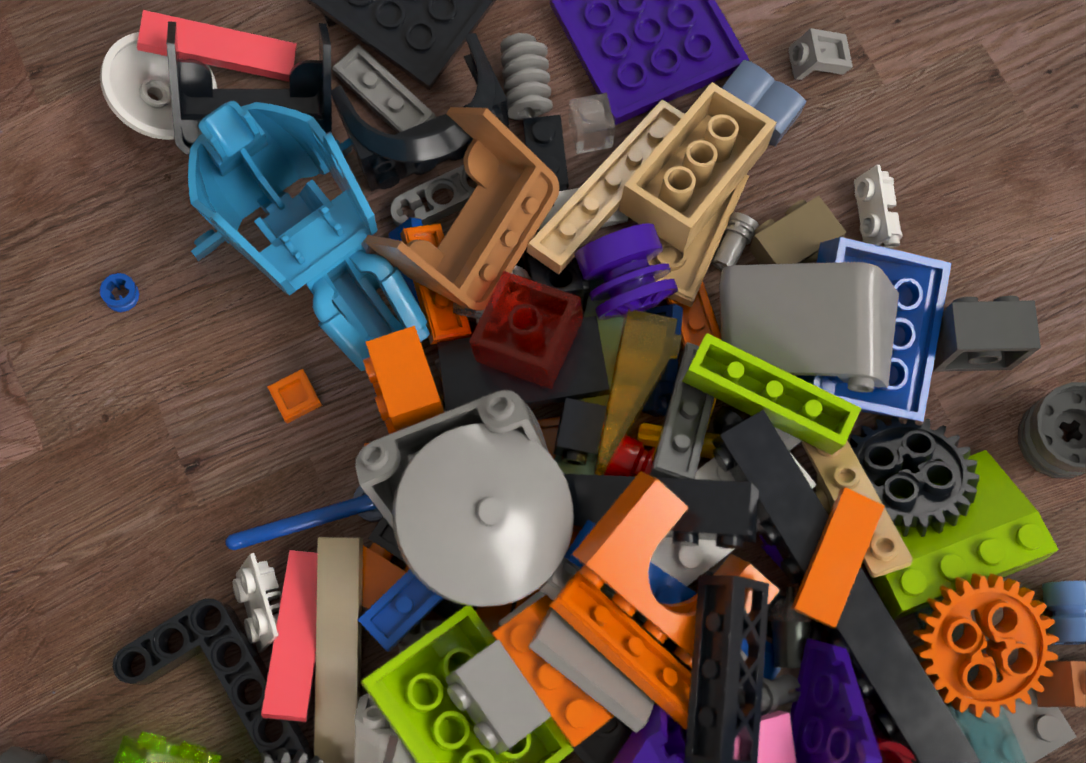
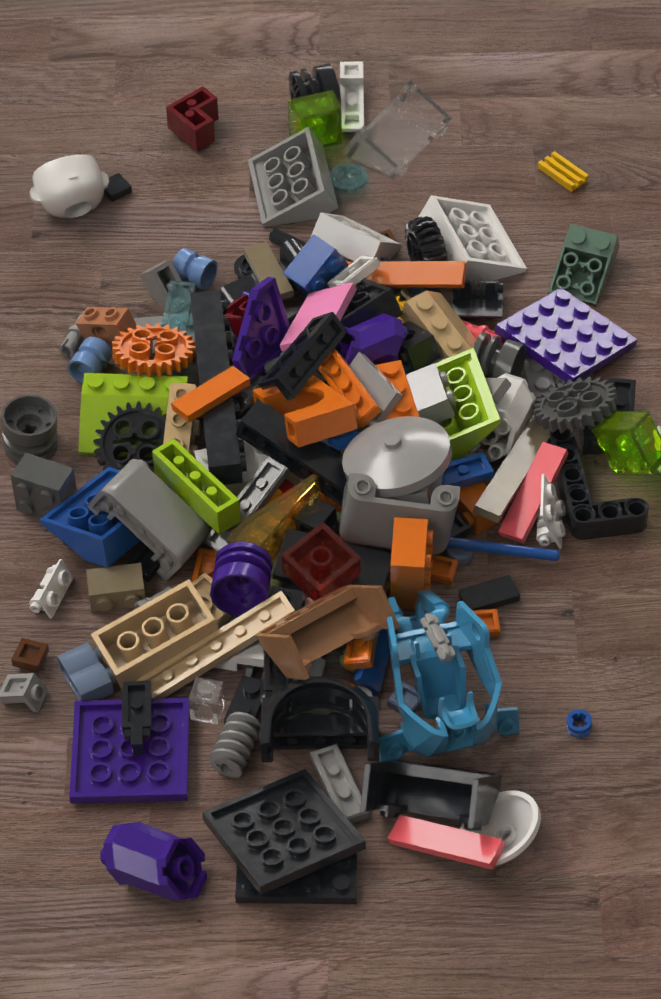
camera: 155 degrees left, 25 degrees down
(298, 227) = (437, 638): none -> light grey axle
(305, 443) = (490, 594): none -> black tile
(661, 58) = (137, 713): none -> black hinge
(843, 105) = (30, 655): none -> reddish brown plate

